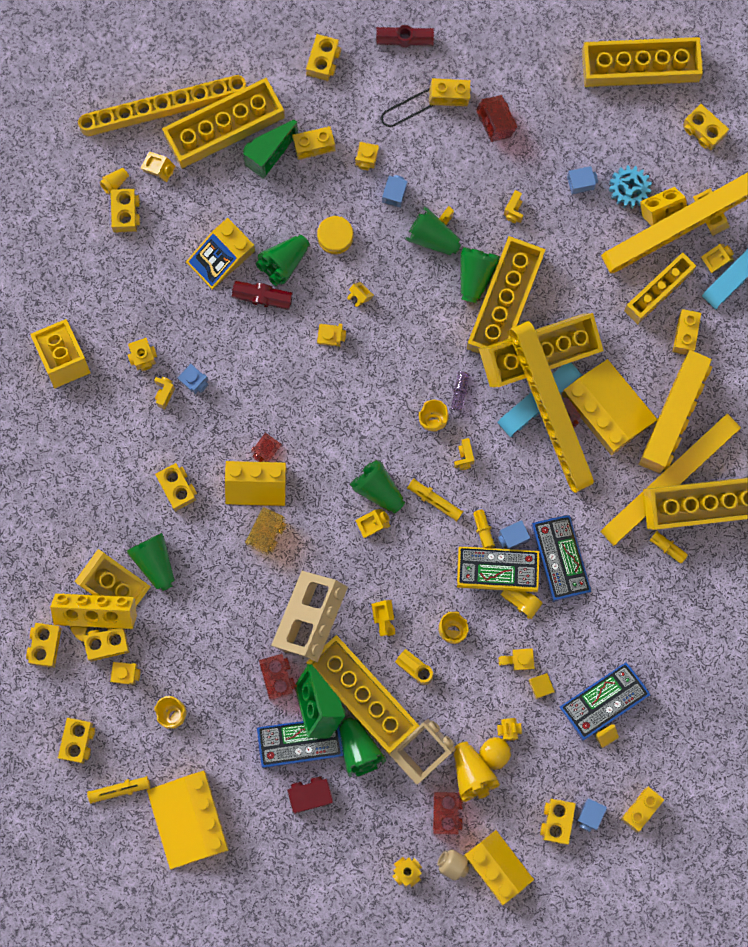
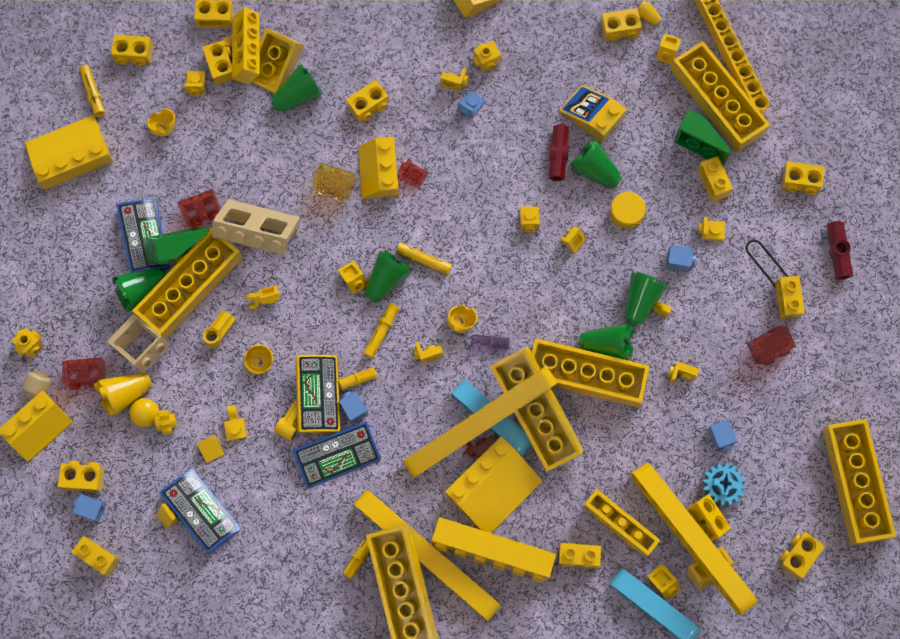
camera: 85 degrees right, 5 degrees down
(309, 795) = (94, 250): dark red brick -> none
(357, 455) = (423, 258): none -> yellow pin

